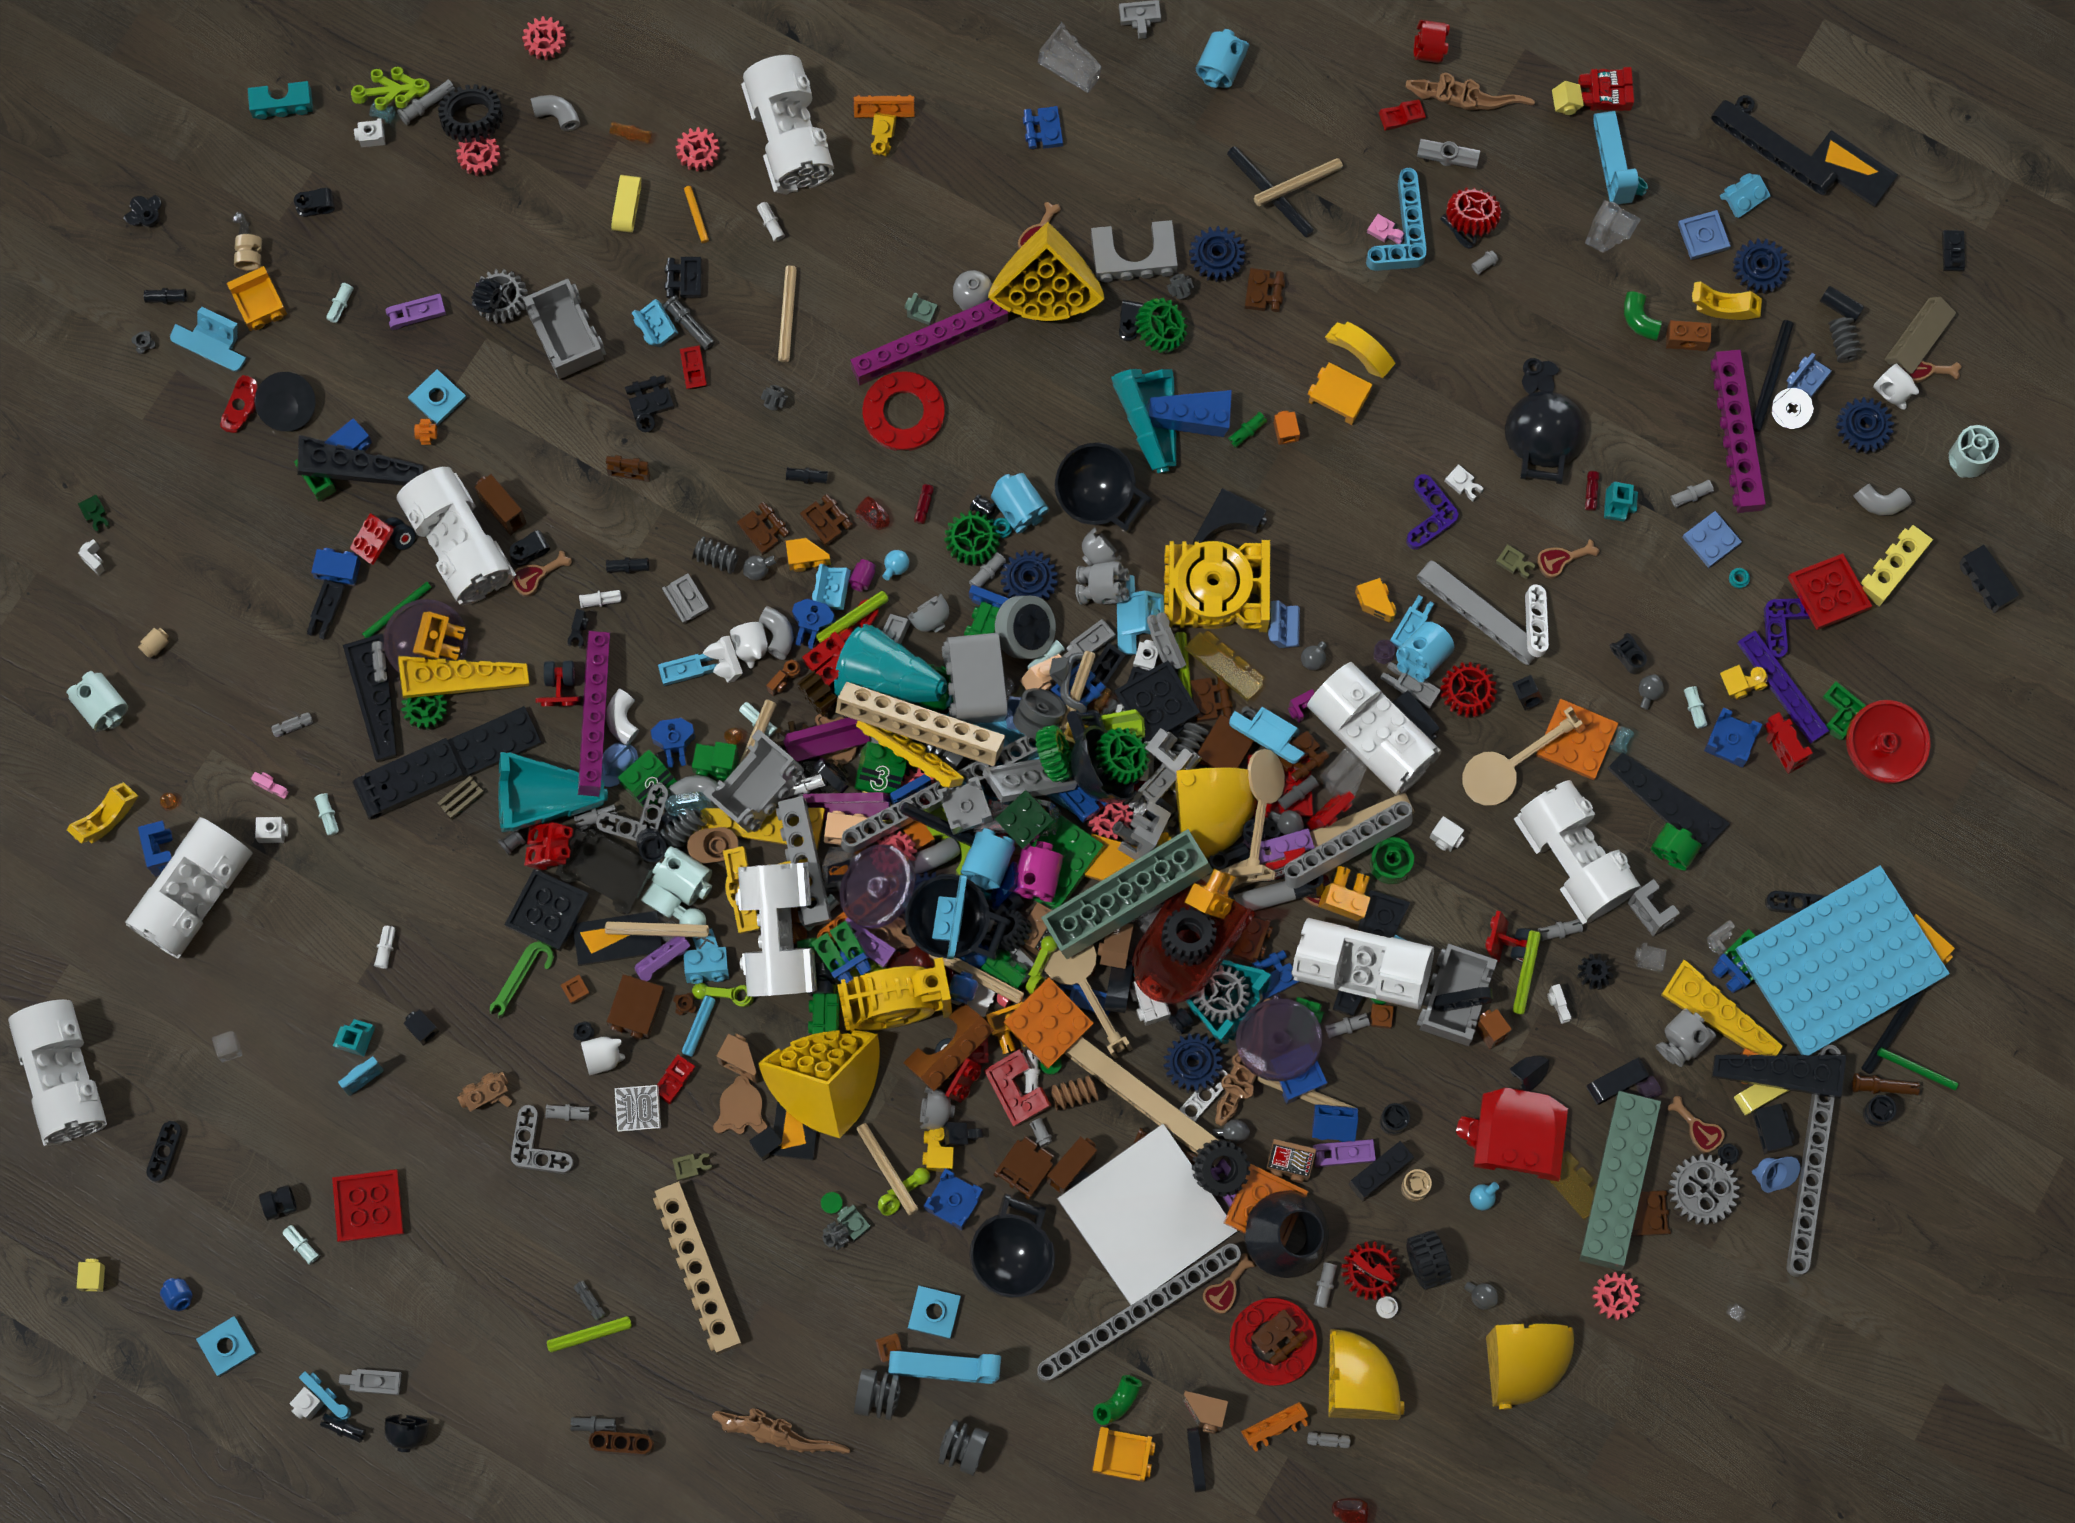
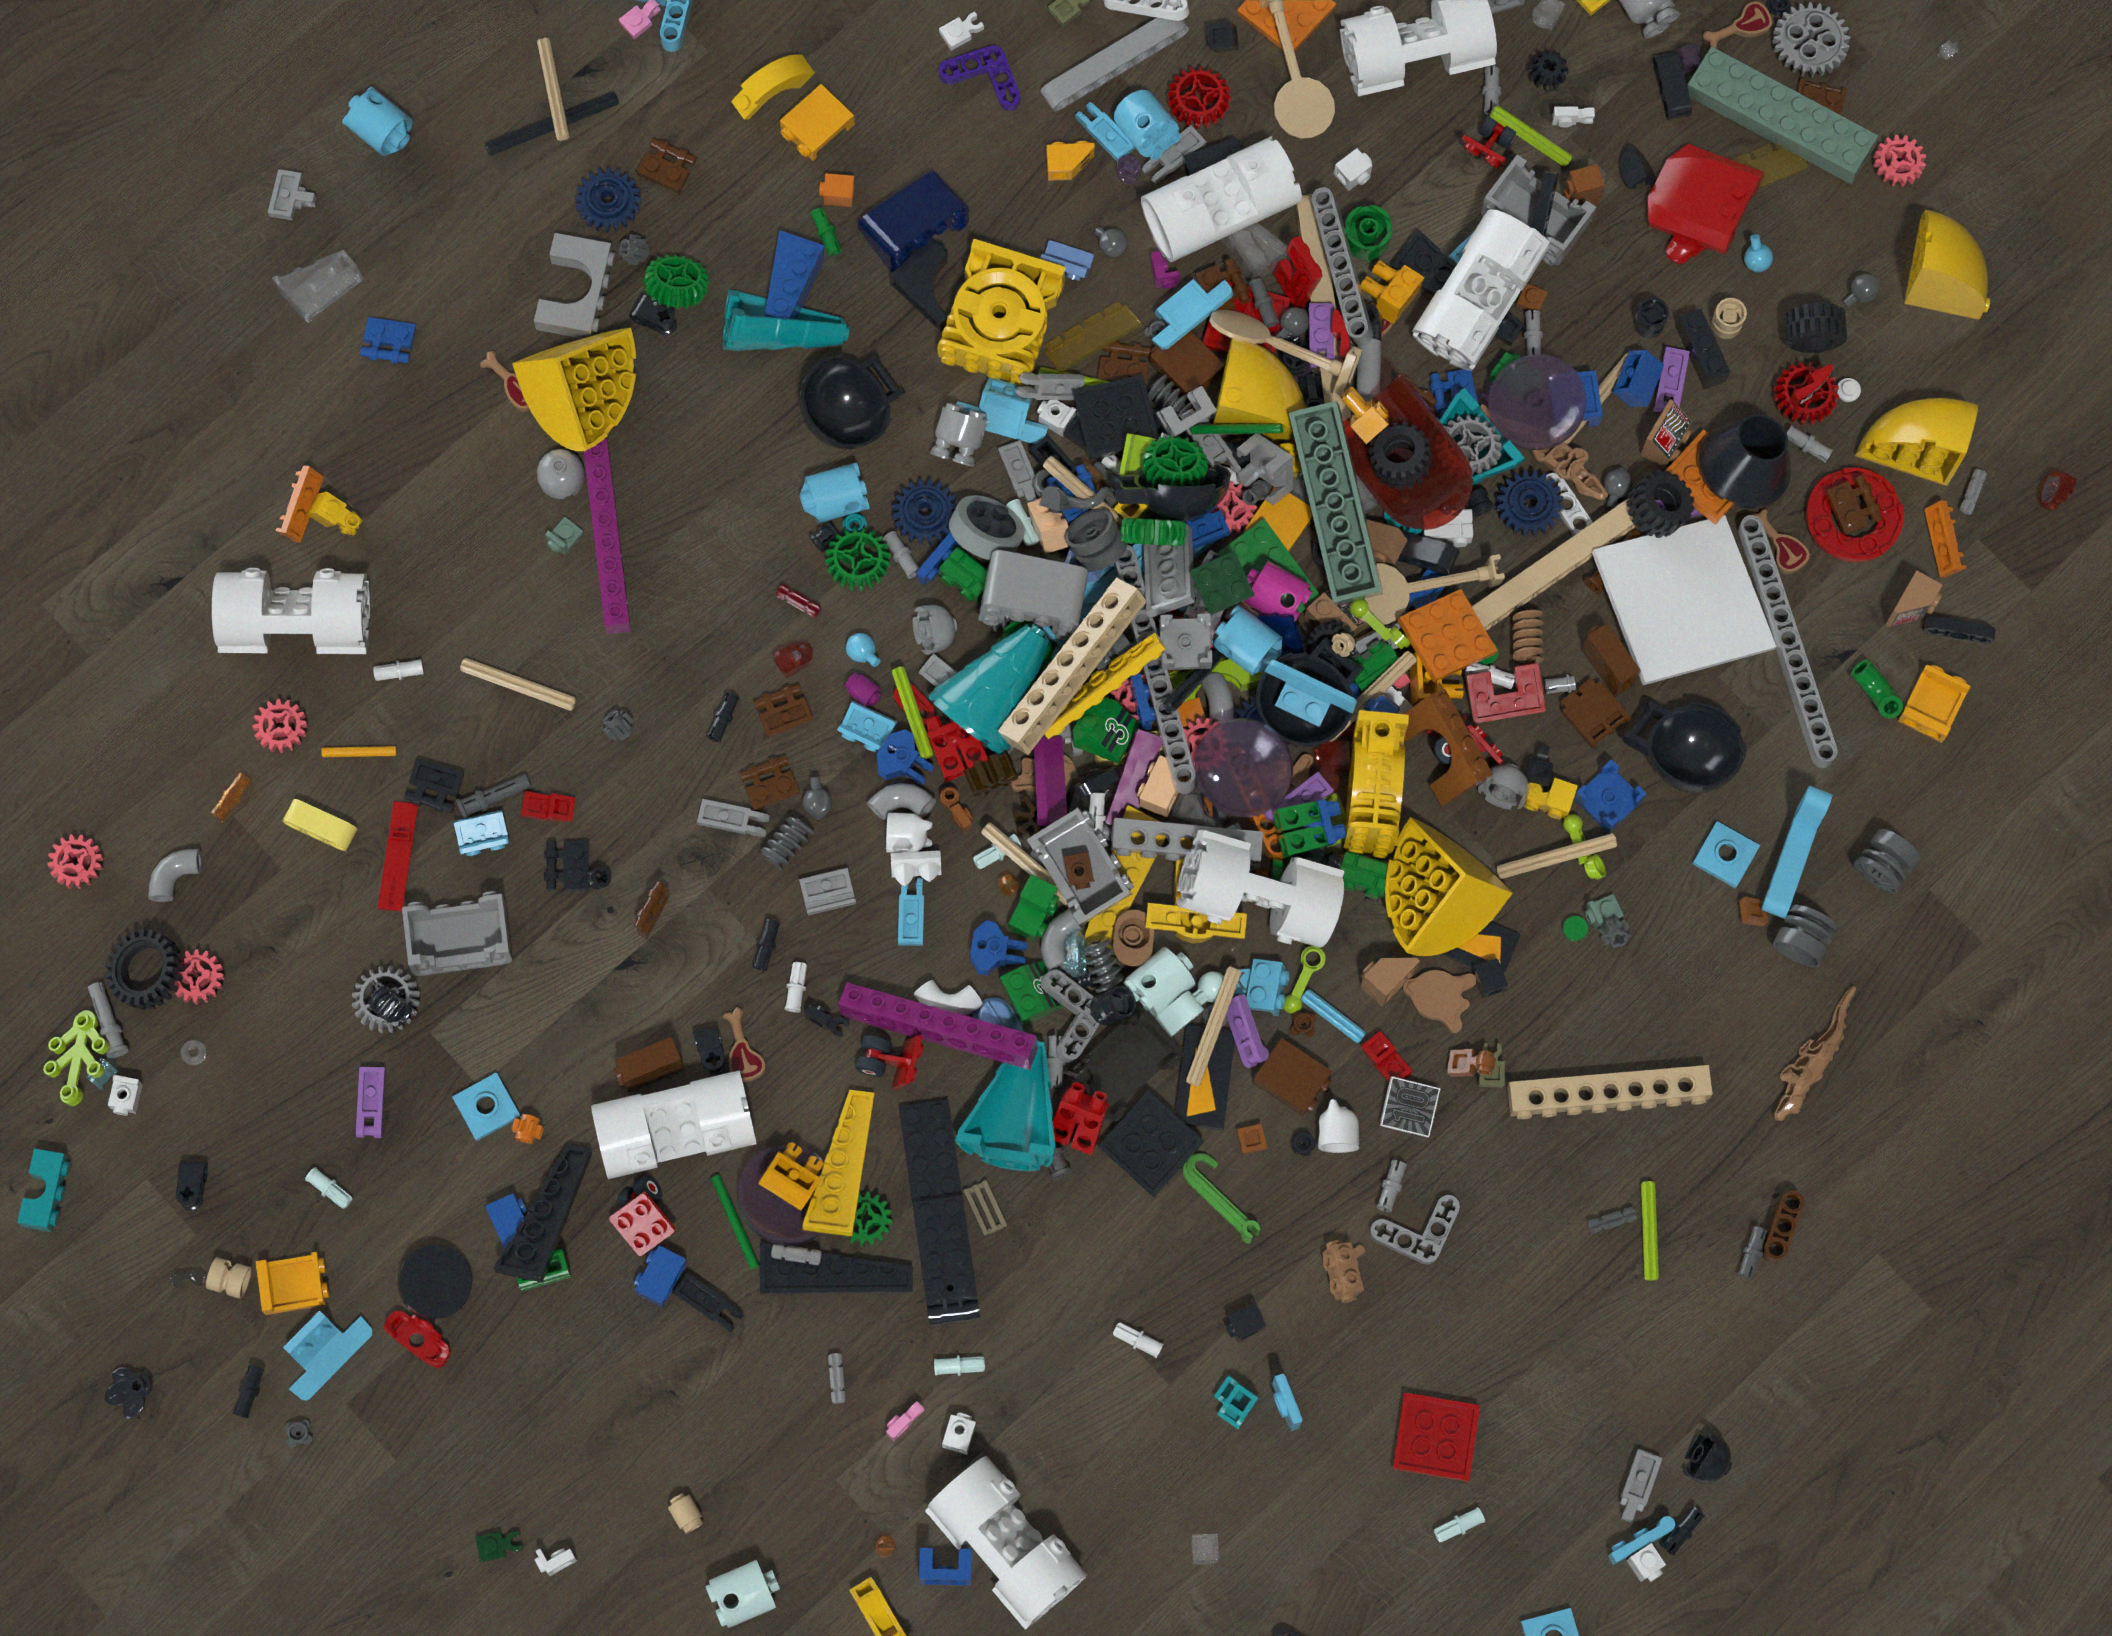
camera: 75 degrees left, 0 degrees up
(270, 1205) = (1405, 1536): black wheel -> none
(419, 166) = (188, 1047): none -> clear plate
(620, 270) = (397, 856): none -> red piece
(688, 1146) = (1465, 1061): none -> dark orange plate
(724, 505) = (730, 818): none -> light grey hinge
(753, 783) = (1079, 870): none -> reddish brown brick
(805, 554) = (817, 744): light orange slope -> none
(910, 438) = (688, 623): red plate -> none
(1006, 935) = (1347, 641): none -> tan plate
(1098, 549) = (918, 427): light grey cylinder -> none
(1170, 798) = (1237, 429): none -> green bar
(1281, 493) = (913, 218): none -> clear blue windscreen

